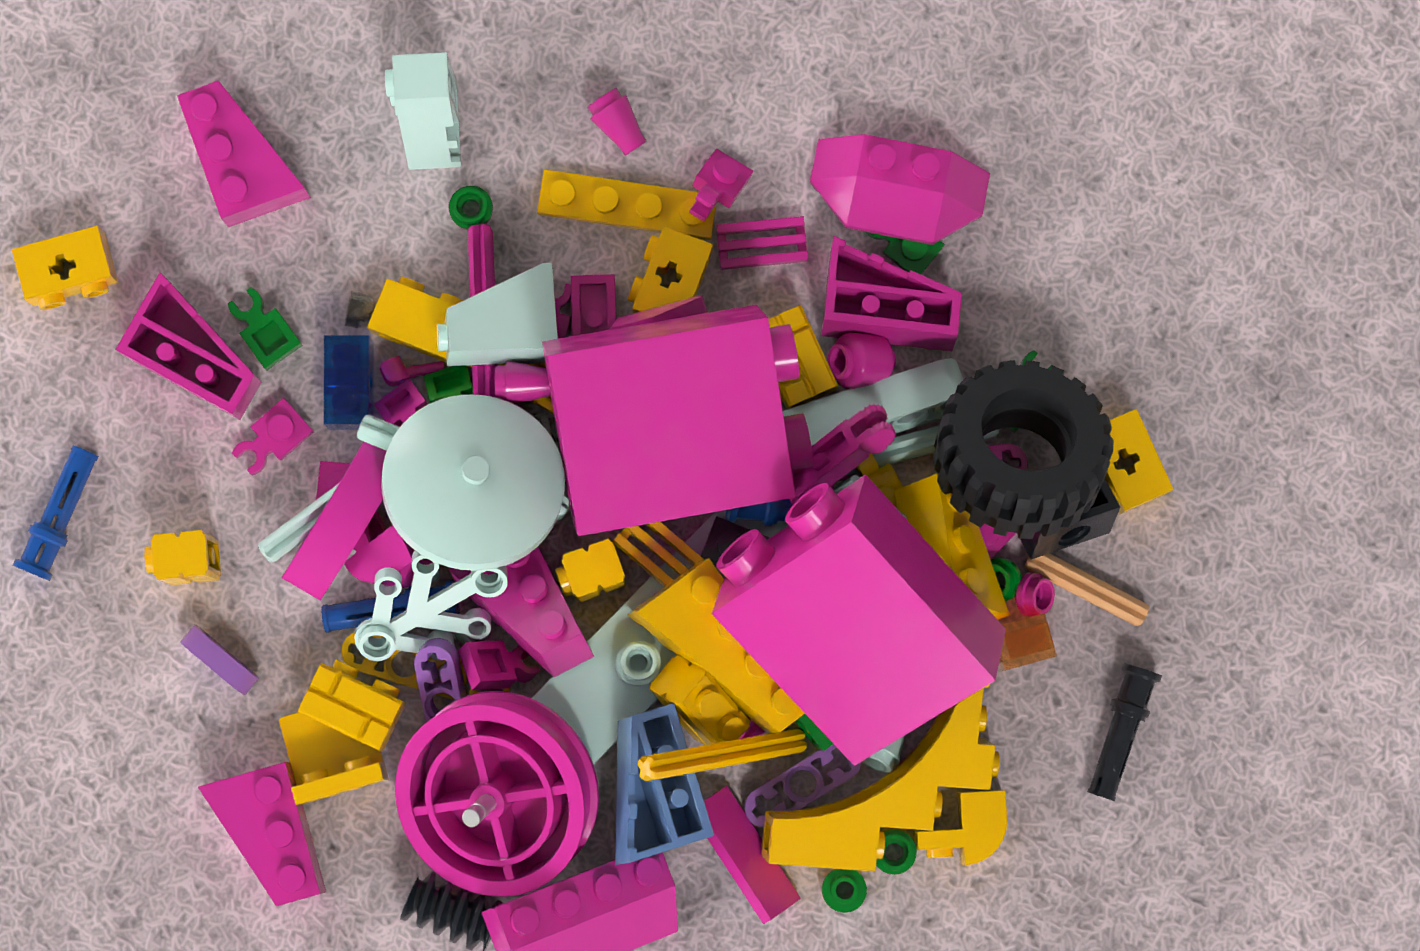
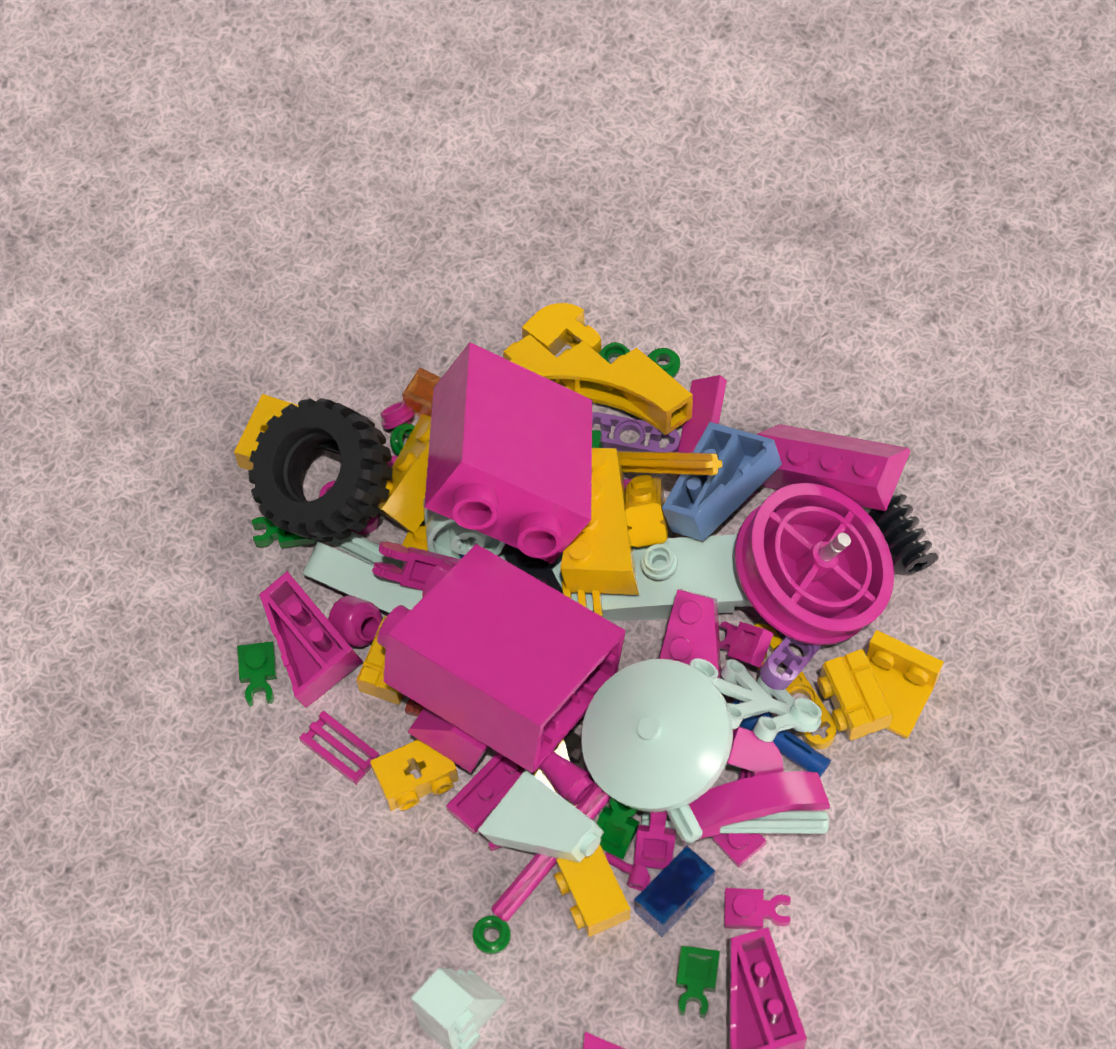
camera: 130 degrees left, 20 degrees down
(78, 462) = (956, 979): blue pin -> none
(183, 557) = (881, 872): yellow brick -> none
(219, 660) = (914, 802): medium lavender beam -> none
(269, 830) = (972, 676): dark pink wedge -> none
(359, 310) = (621, 931): clear smoke hinge -> none
(591, 571) = (641, 637): yellow brick -> none
(616, 119) = (346, 903): dark pink cone -> none
(621, 204) = (395, 846): yellow plate -> none
(720, 182) = (326, 800): dark pink plate -> none
(898, 187) = (231, 702): dark pink wedge -> none
(1089, 588) = (360, 388): light nougat axle -> none
(1128, 710) = (411, 316): black pin -> none

